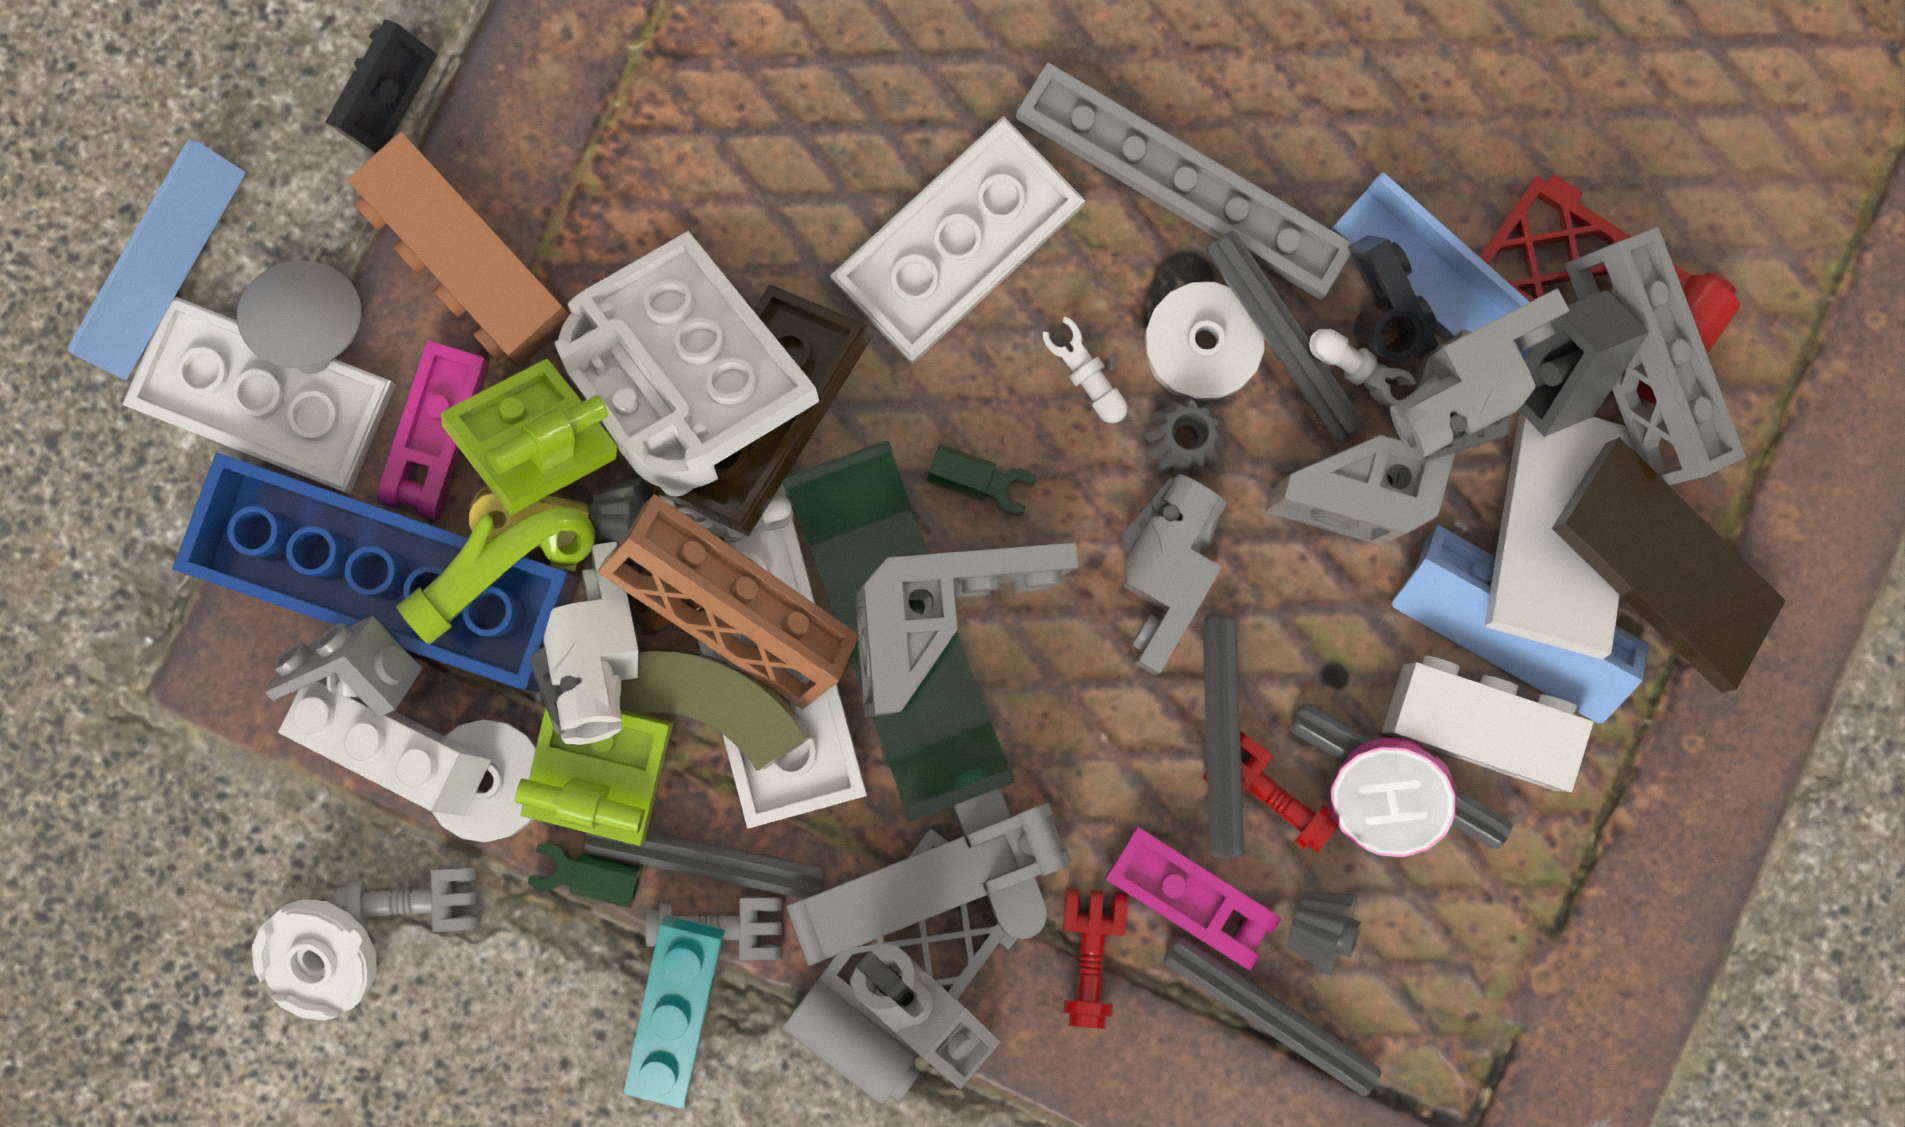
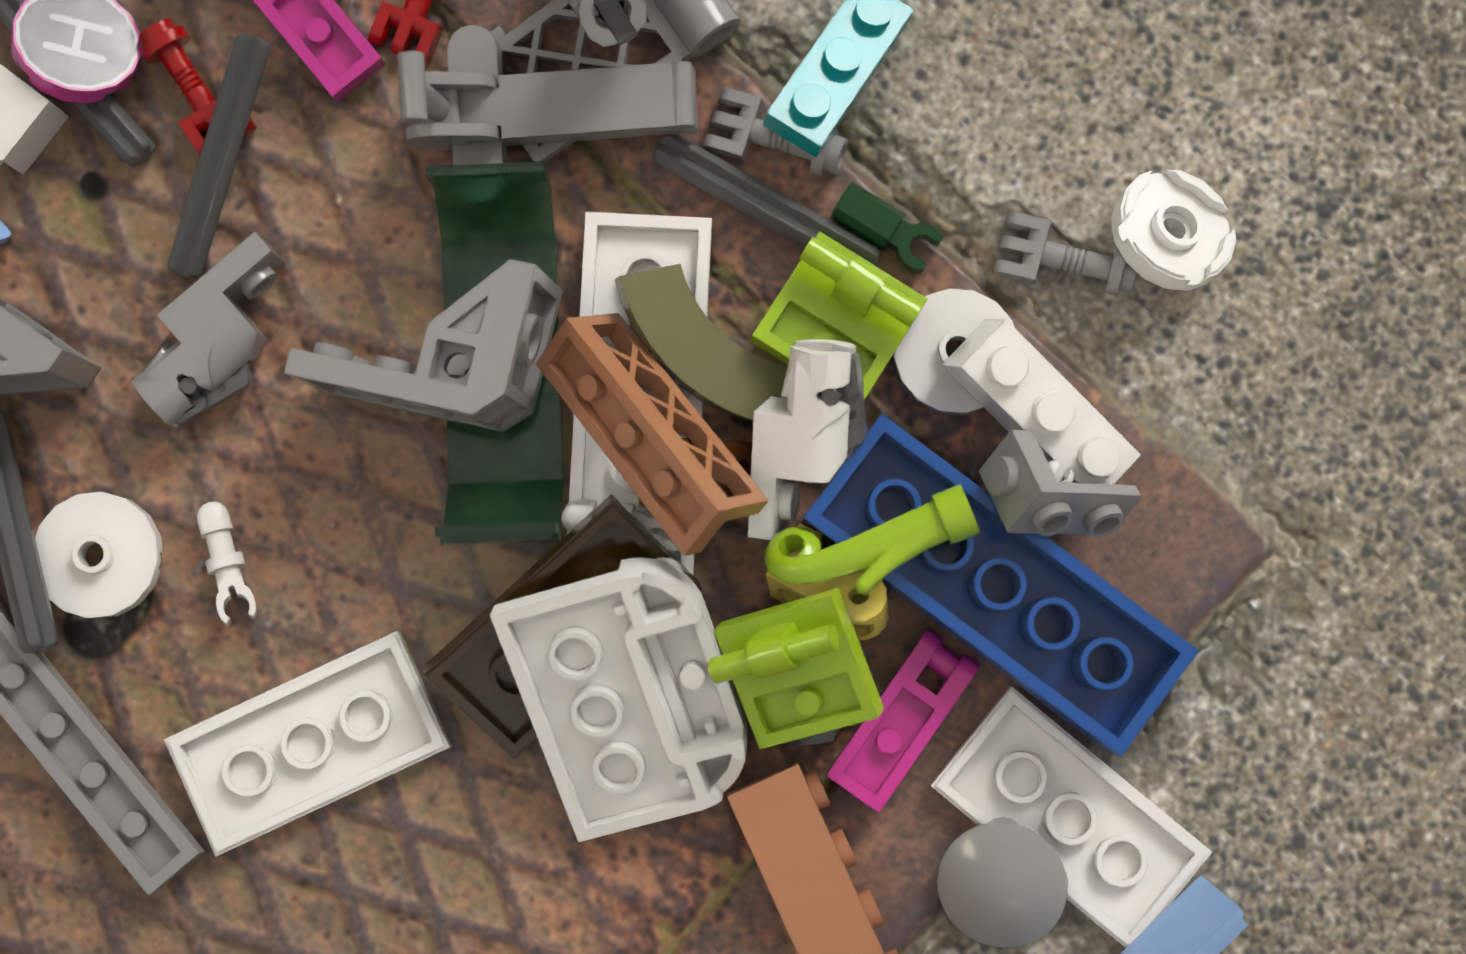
camera: 155 degrees left, 0 degrees up
(617, 508) = (732, 564): dark grey piece -> none
(976, 478) = (373, 491): dark green bar -> none
(1195, 419) = (172, 467): dark grey piece -> none

